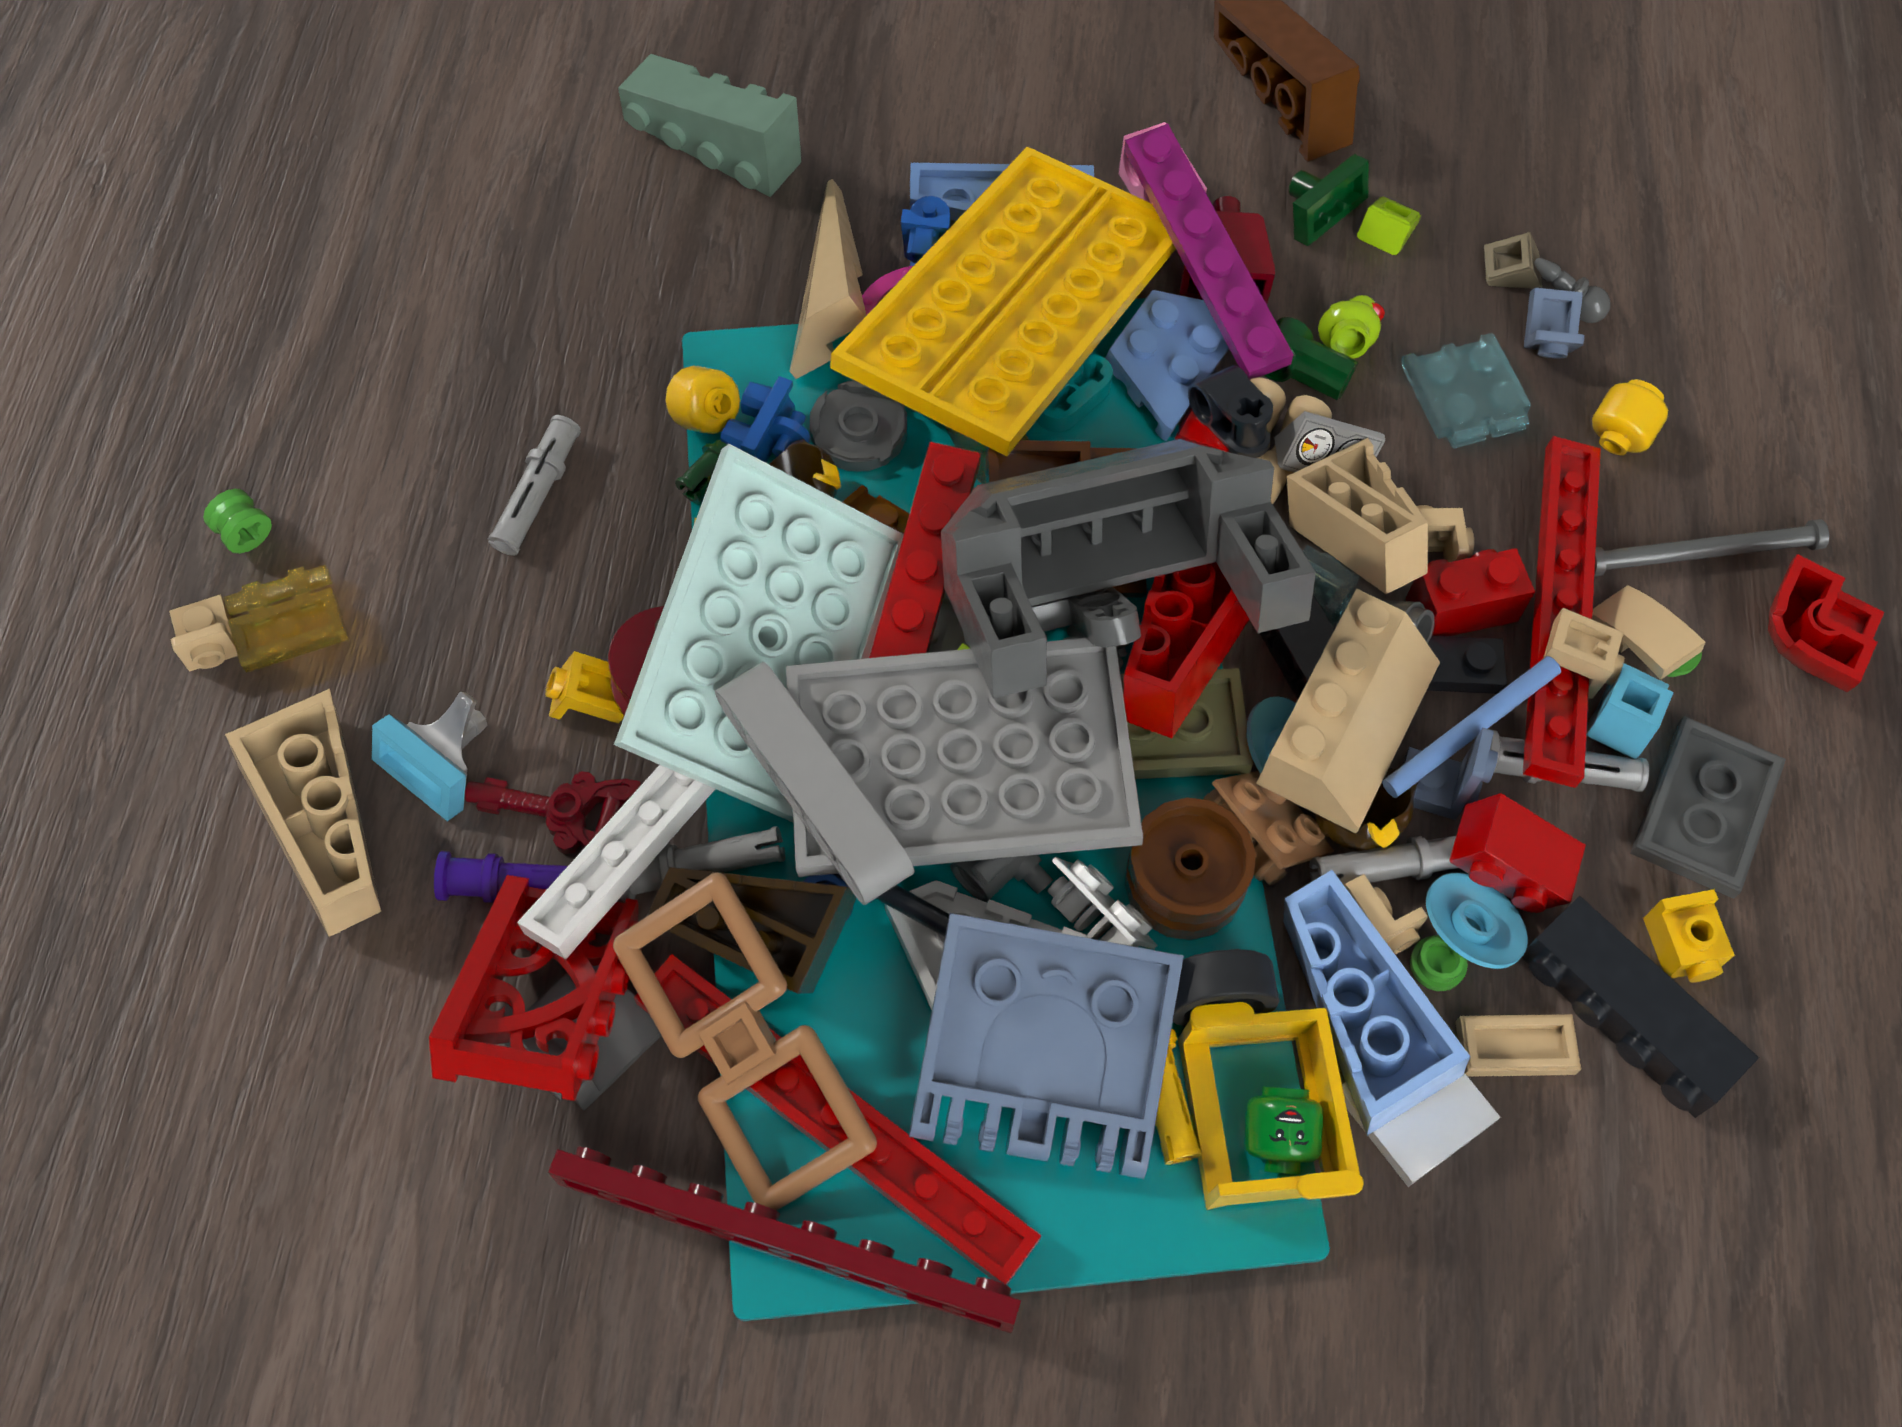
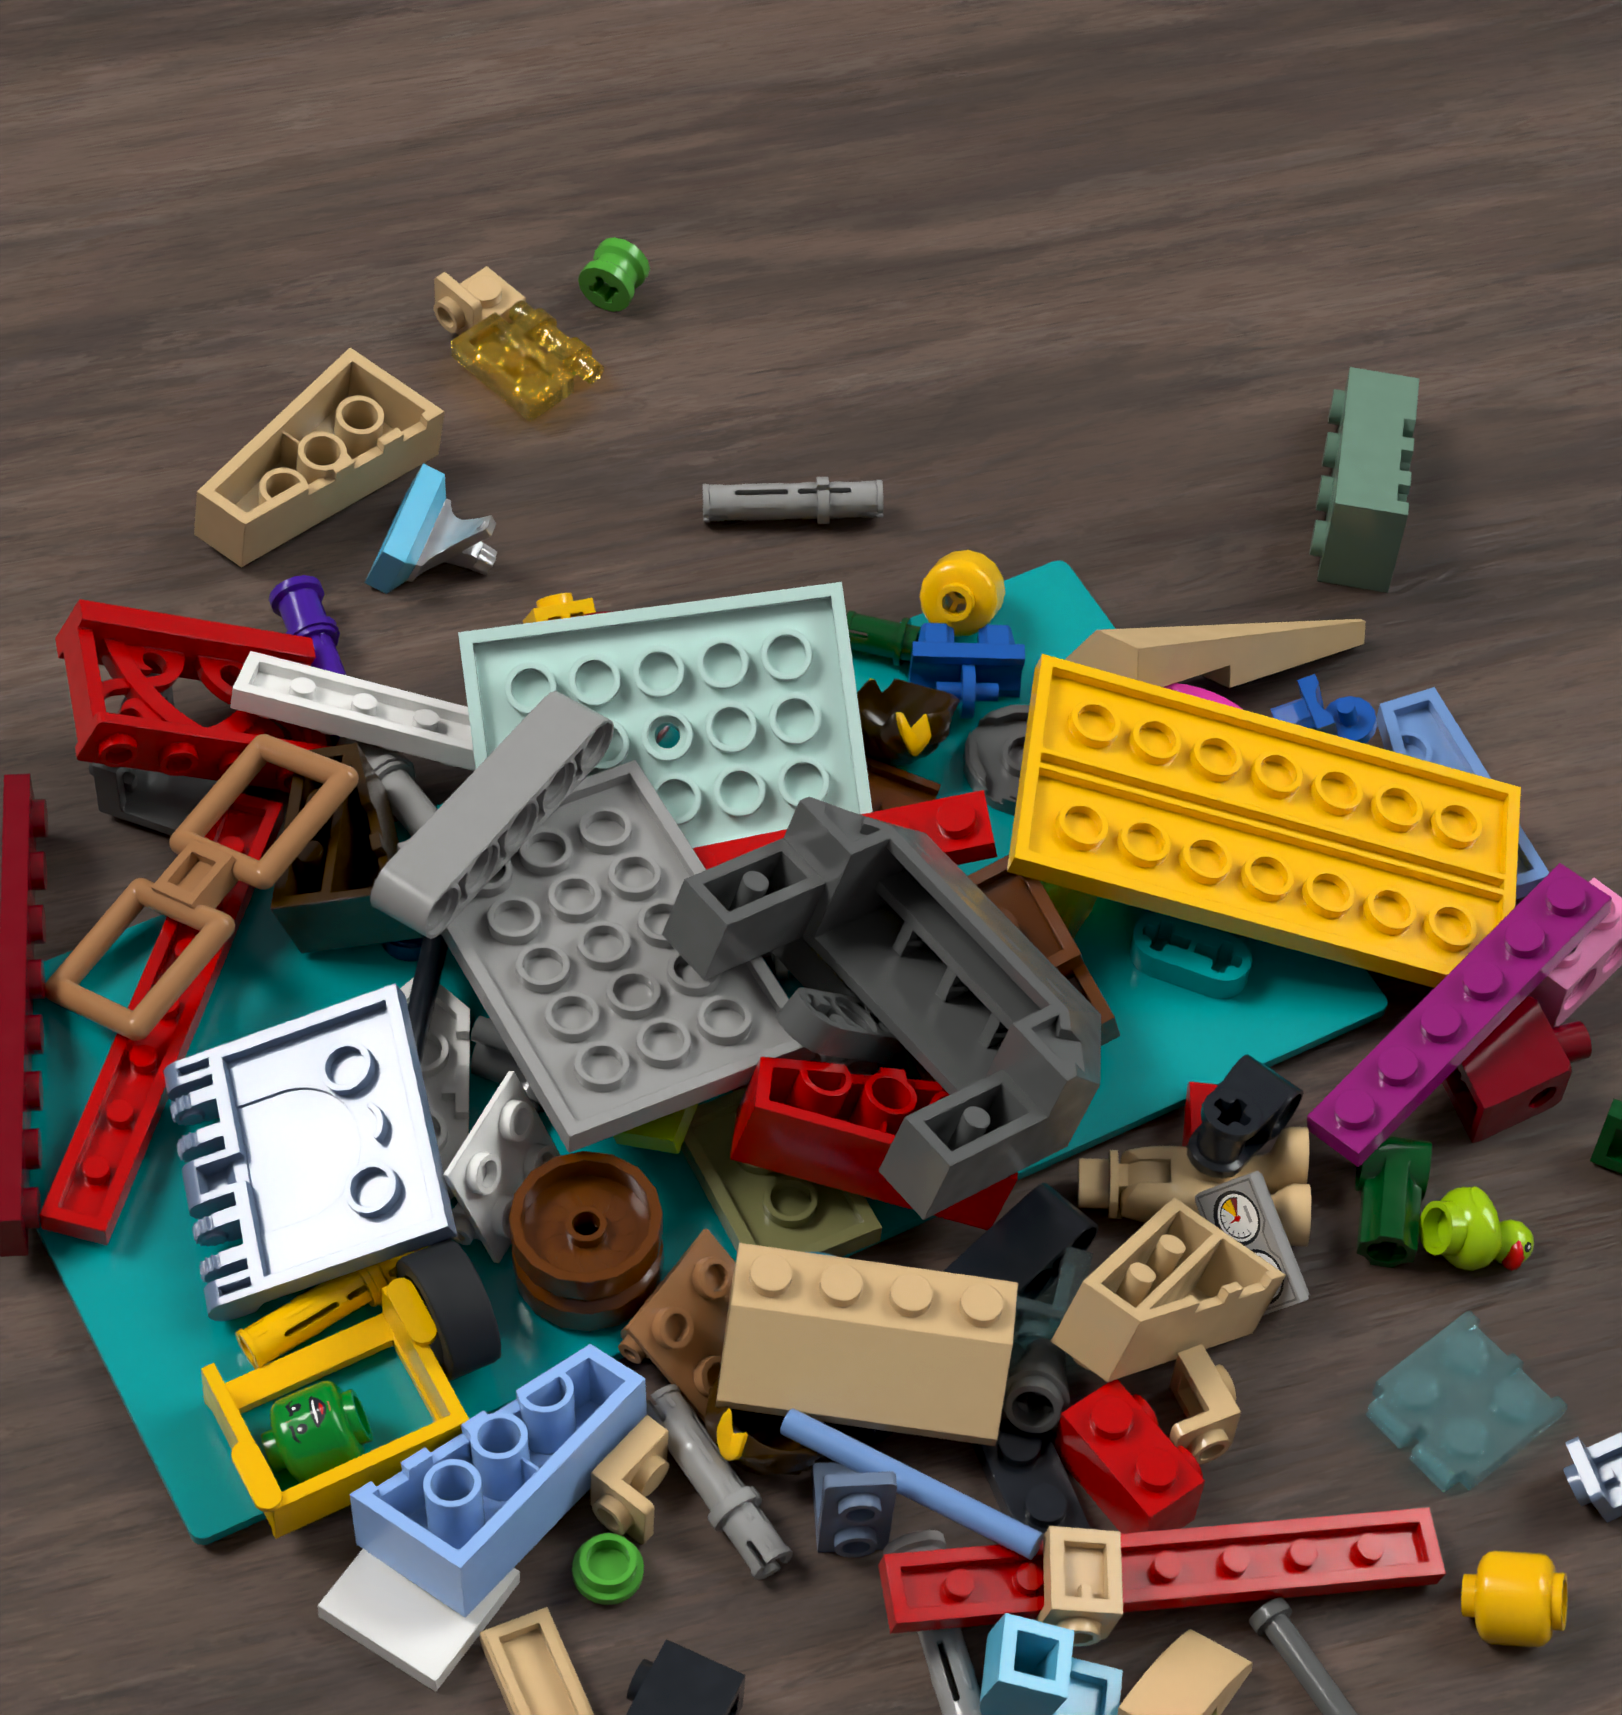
camera: 65 degrees right, 10 degrees down
(563, 810) = (421, 668): dark red piece -> none
(1164, 352) = (1300, 1027): medium blue wing -> none
(1476, 921) = (693, 1564): medium azure dish -> none
(1517, 853) = (773, 1596): red brick -> none

